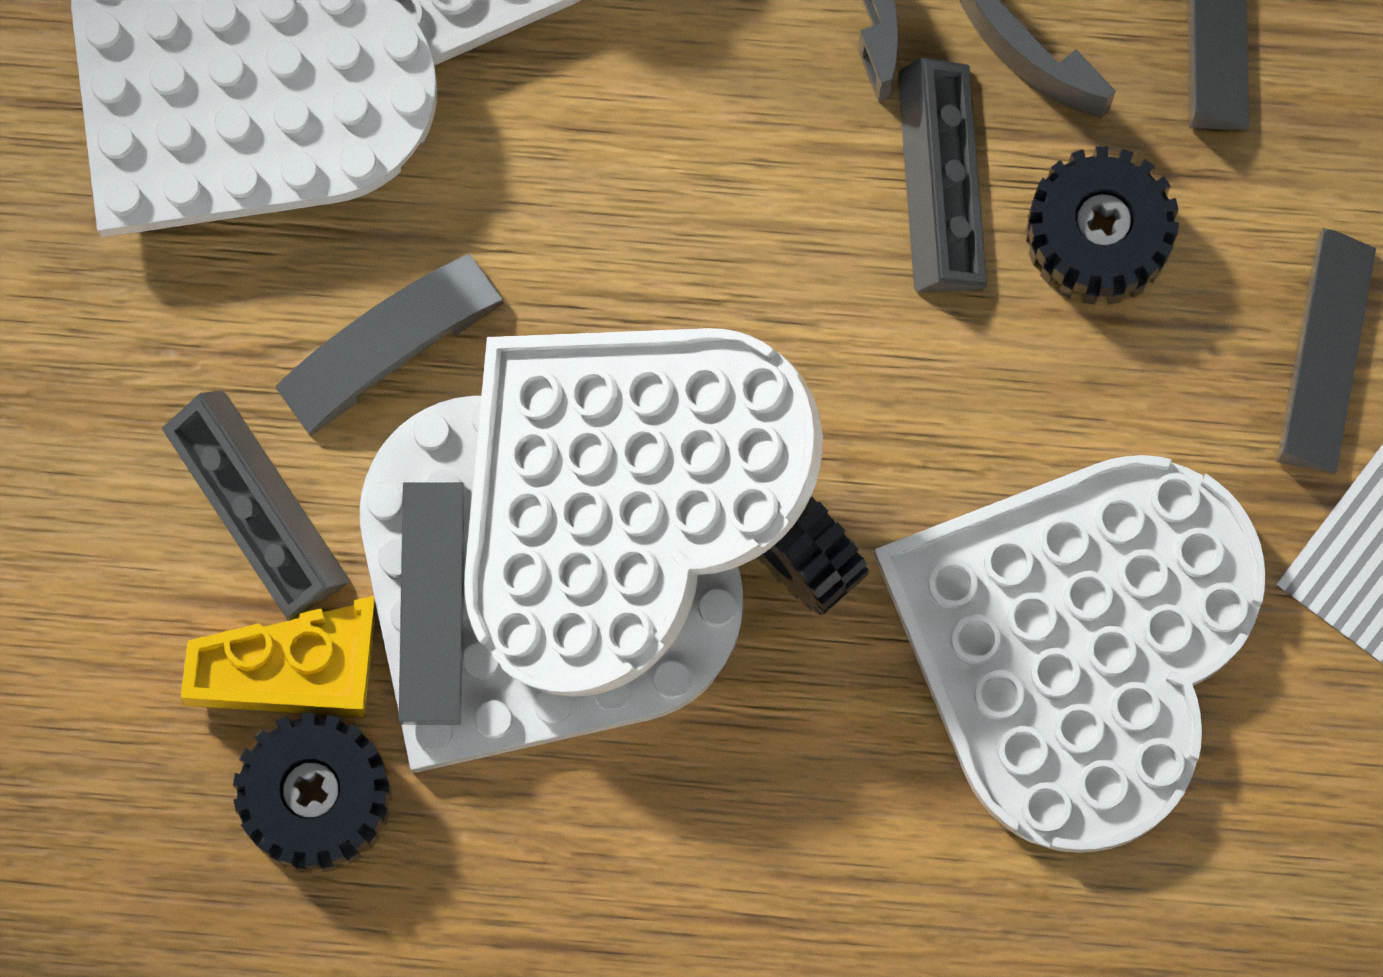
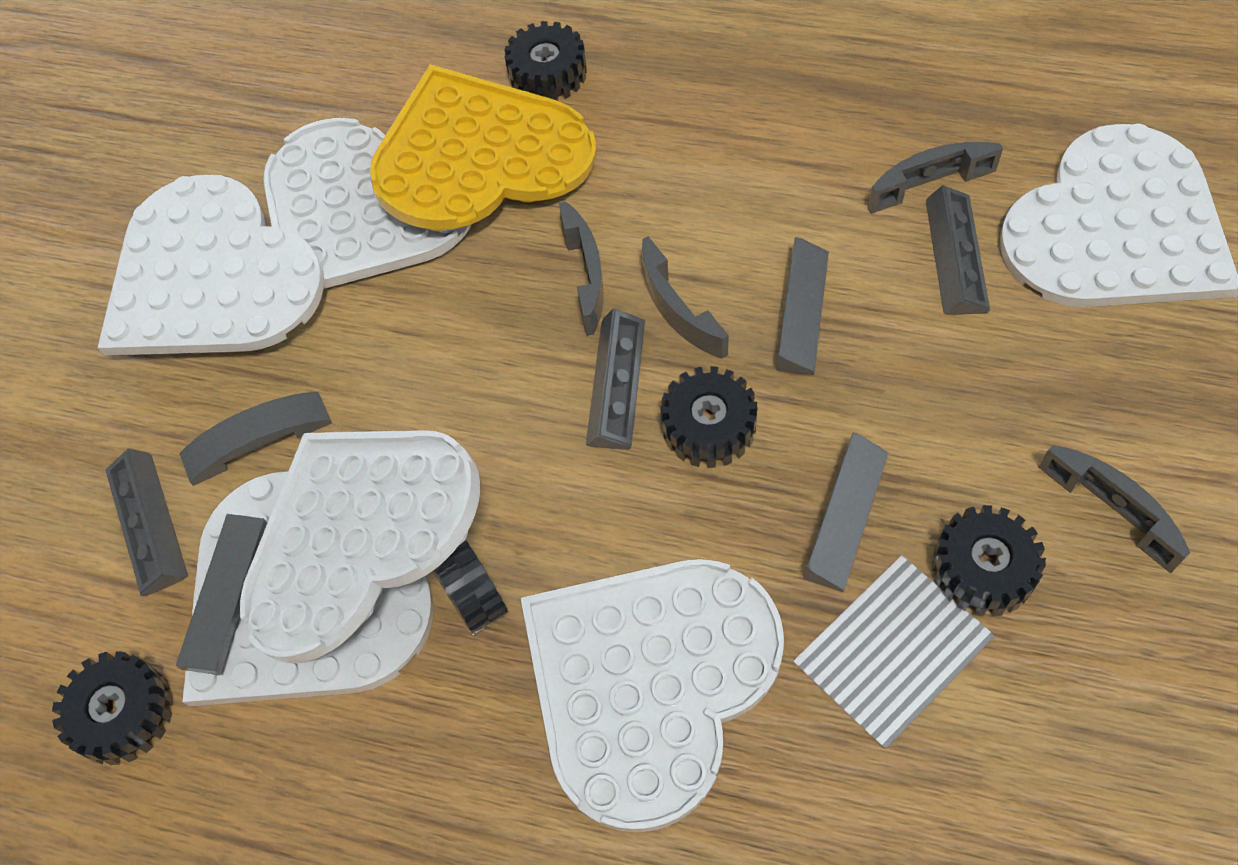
camera: 15 degrees right, 15 degrees down
(286, 667) = (130, 624): yellow wing -> none

